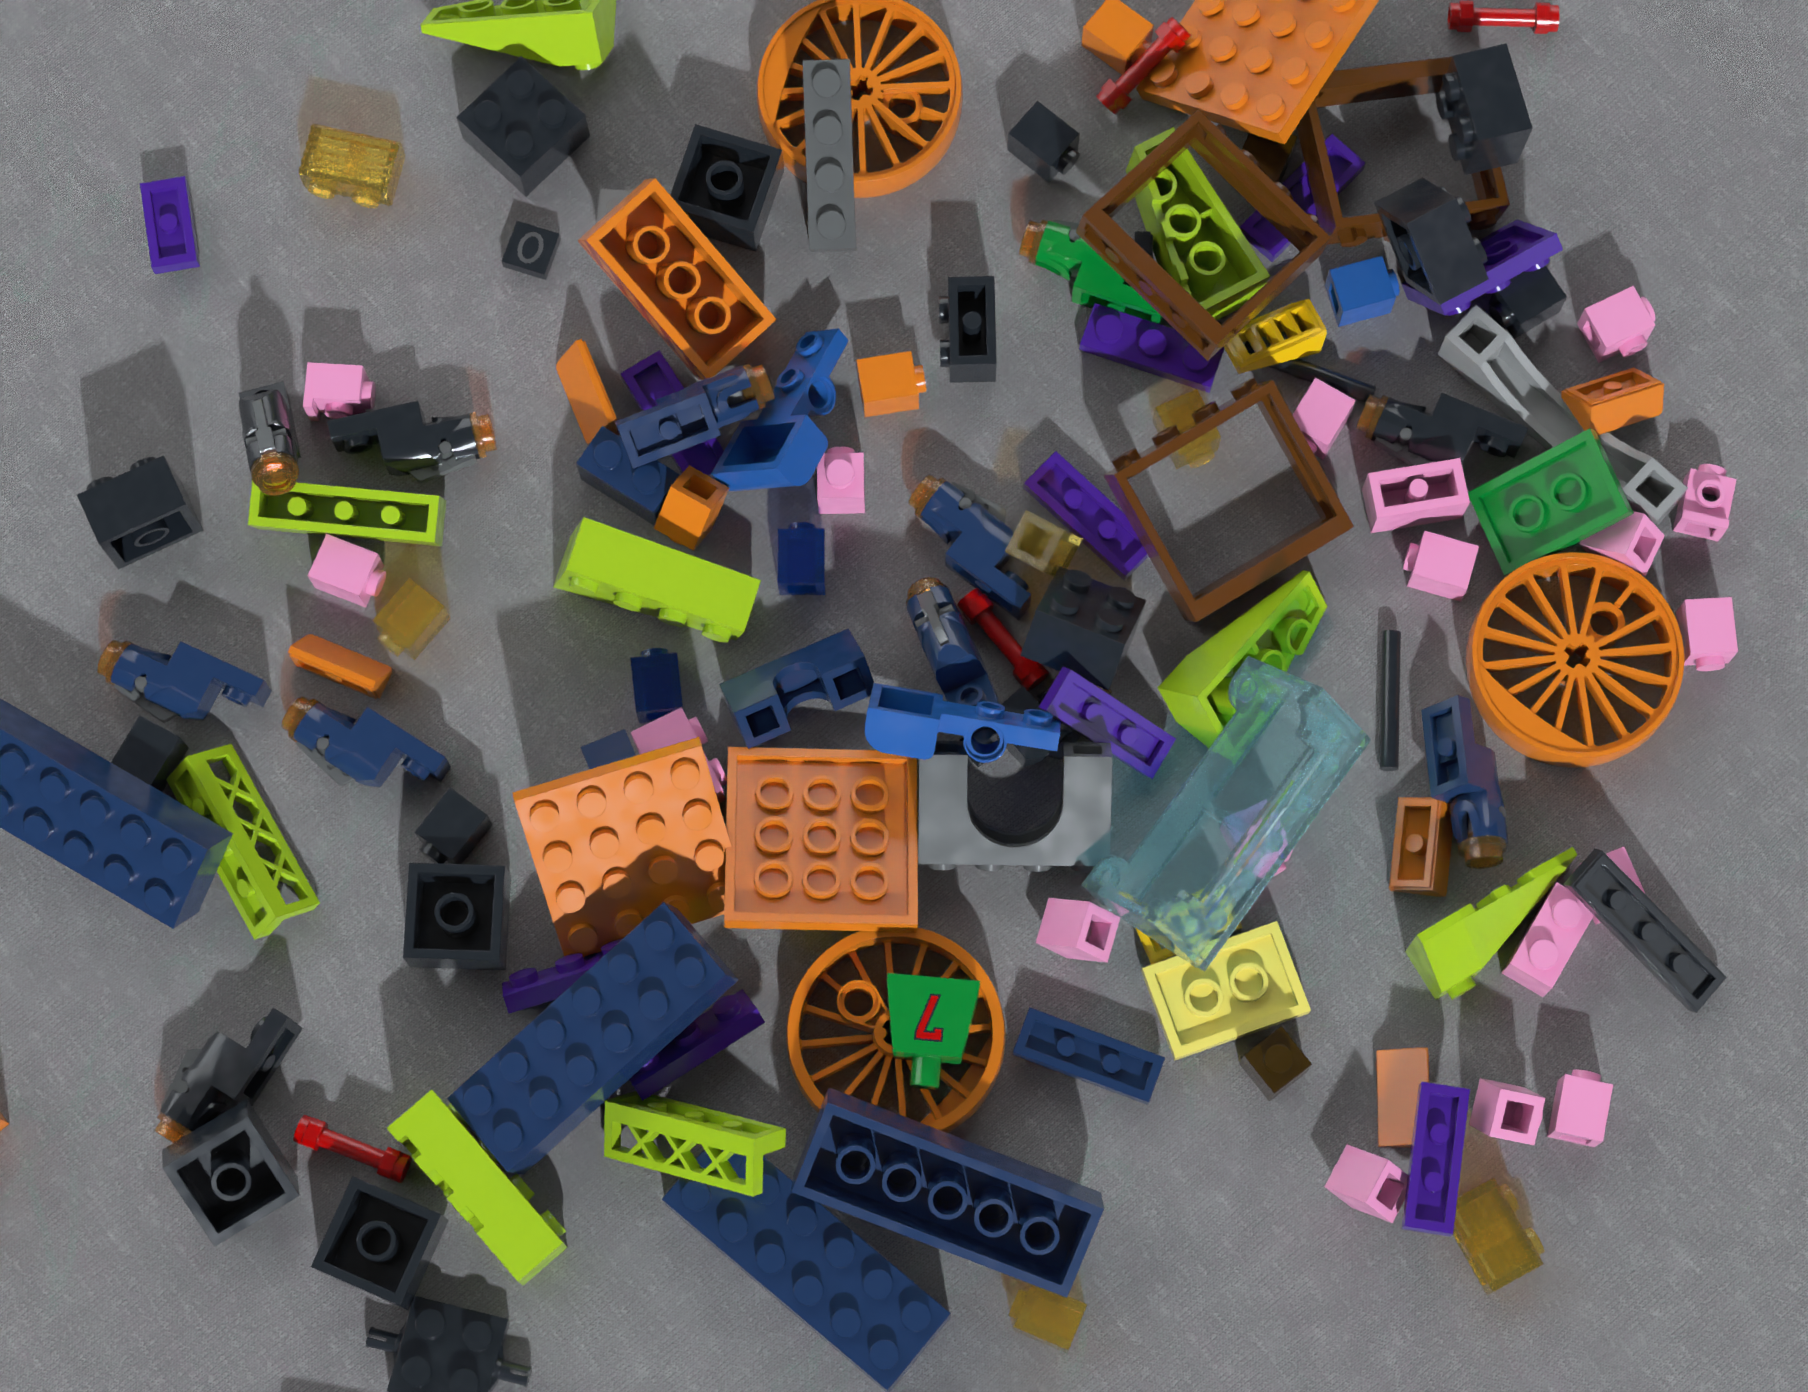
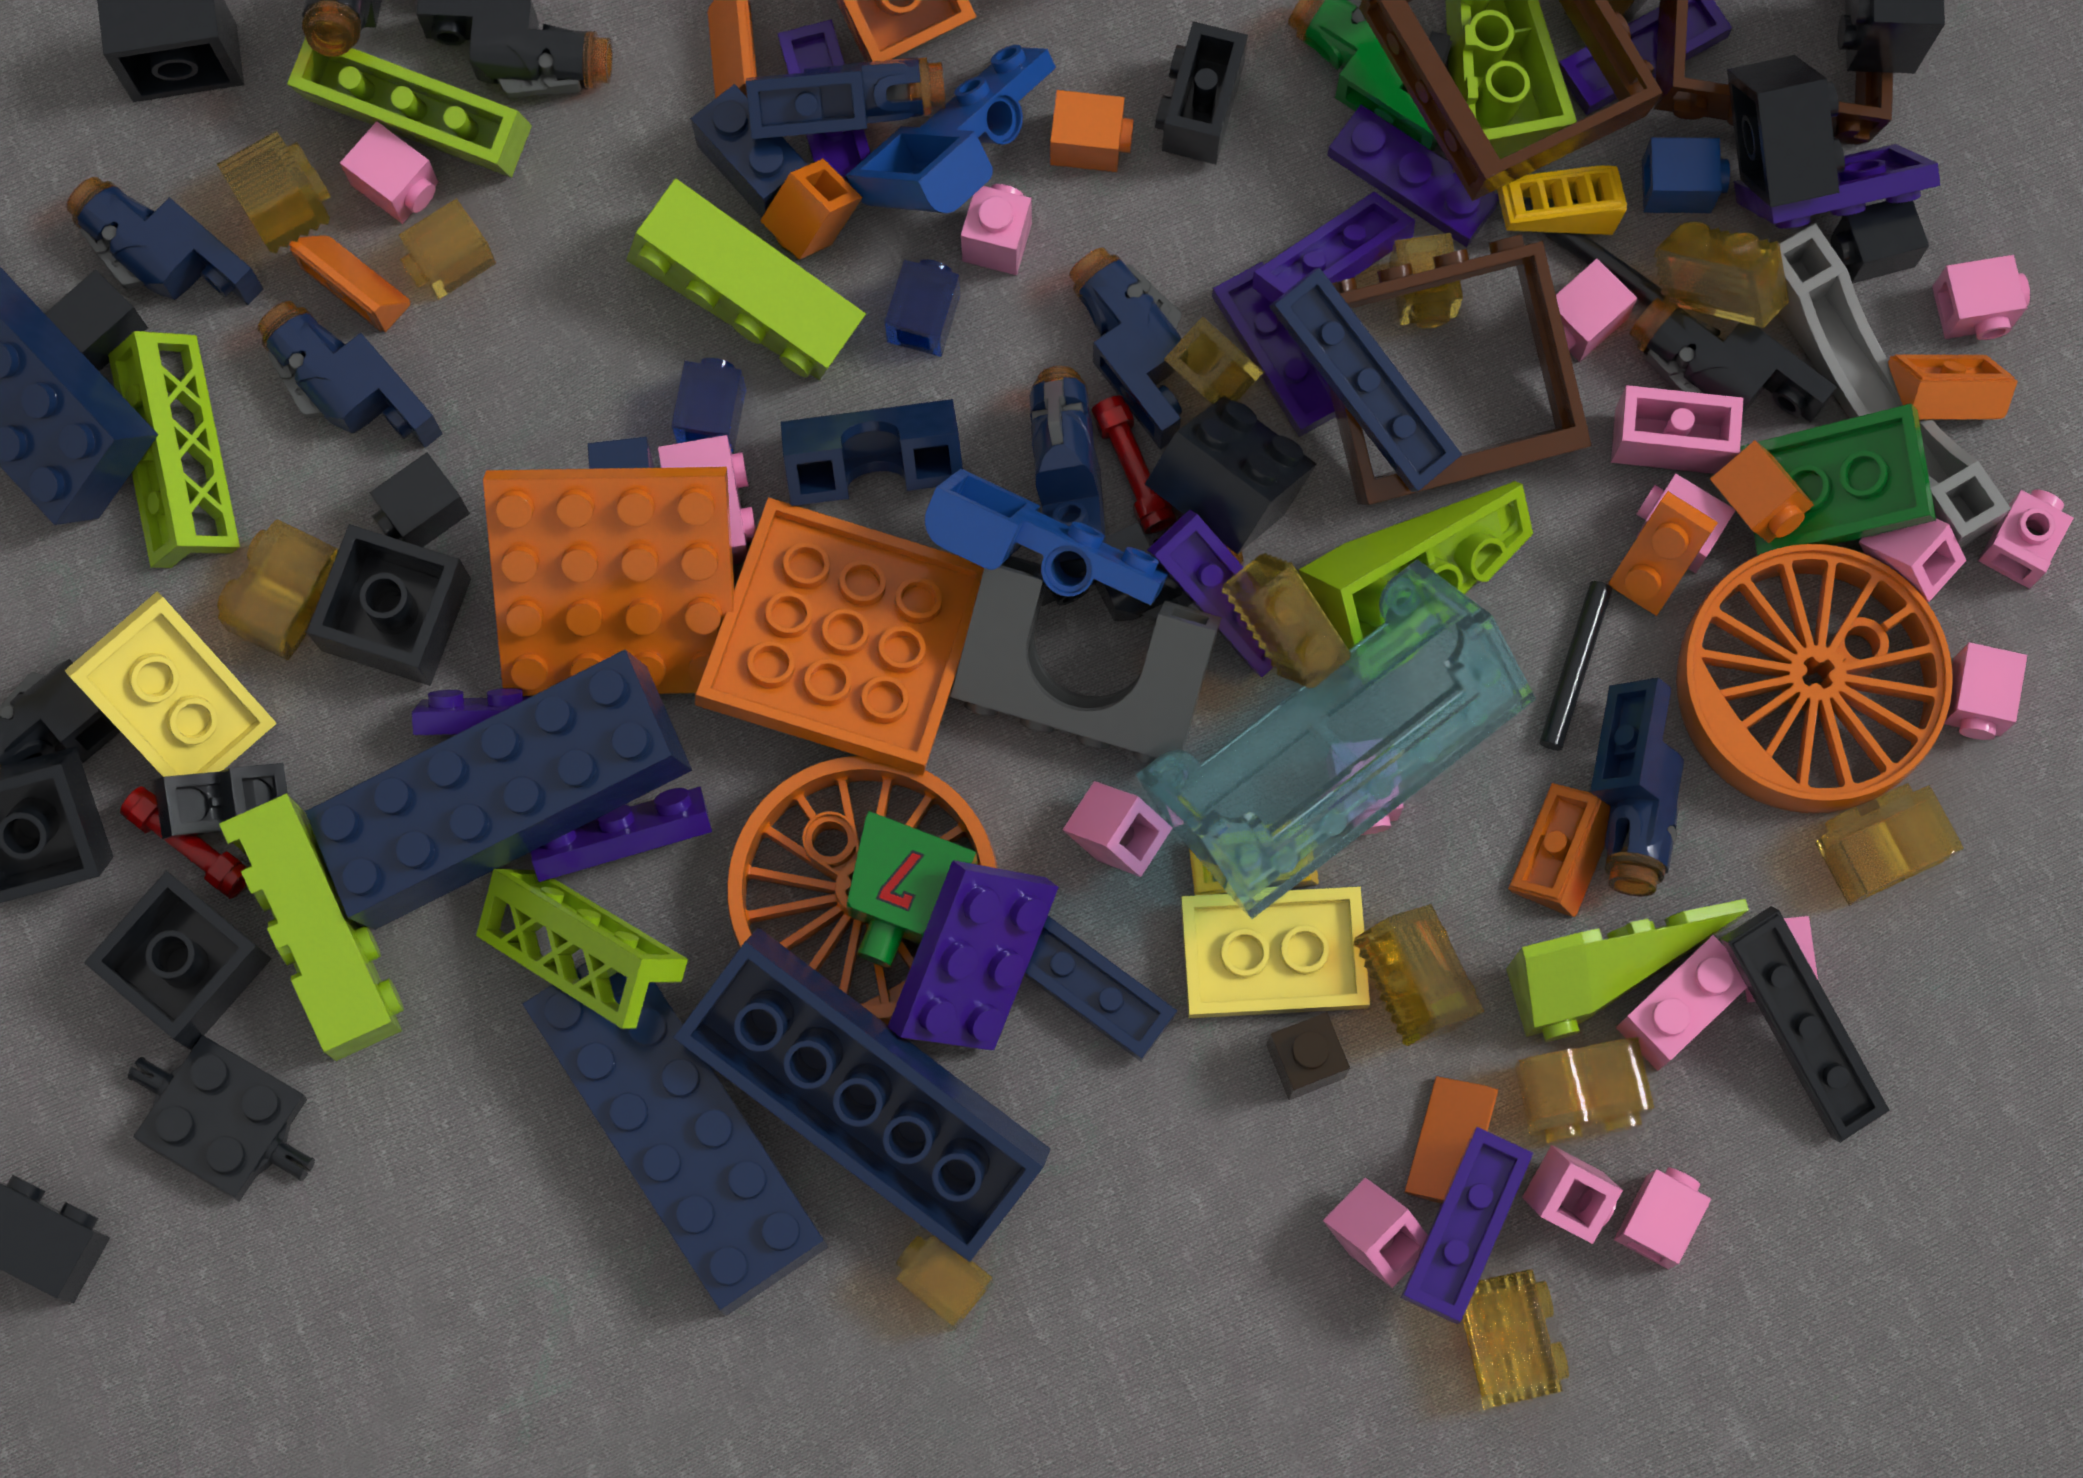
camera: 15 degrees right, 0 degrees up
(264, 612) = (277, 190): none -> clear yellow brick
(310, 1038) = (170, 693): none -> light yellow plate
(364, 927) = (278, 589): none -> clear yellow brick
(369, 1107) = (203, 800): none -> black slope
(999, 1061) = (973, 956): none -> dark purple plate
(1110, 430) = (1338, 247): none -> dark purple plate
(1161, 731) = (1286, 620): none -> clear yellow brick
(1168, 527) = (1365, 380): none -> dark blue plate
(1341, 977) = (1418, 975): none -> clear yellow brick
(1415, 363) = (1722, 274): none -> clear yellow brick
(1432, 596) = (1662, 553): none -> orange plate
(1493, 1027) = (1584, 1089): none -> clear yellow brick
(1495, 527) = (1762, 493): none -> orange brick
(1667, 772) = (1888, 843): none -> clear yellow brick

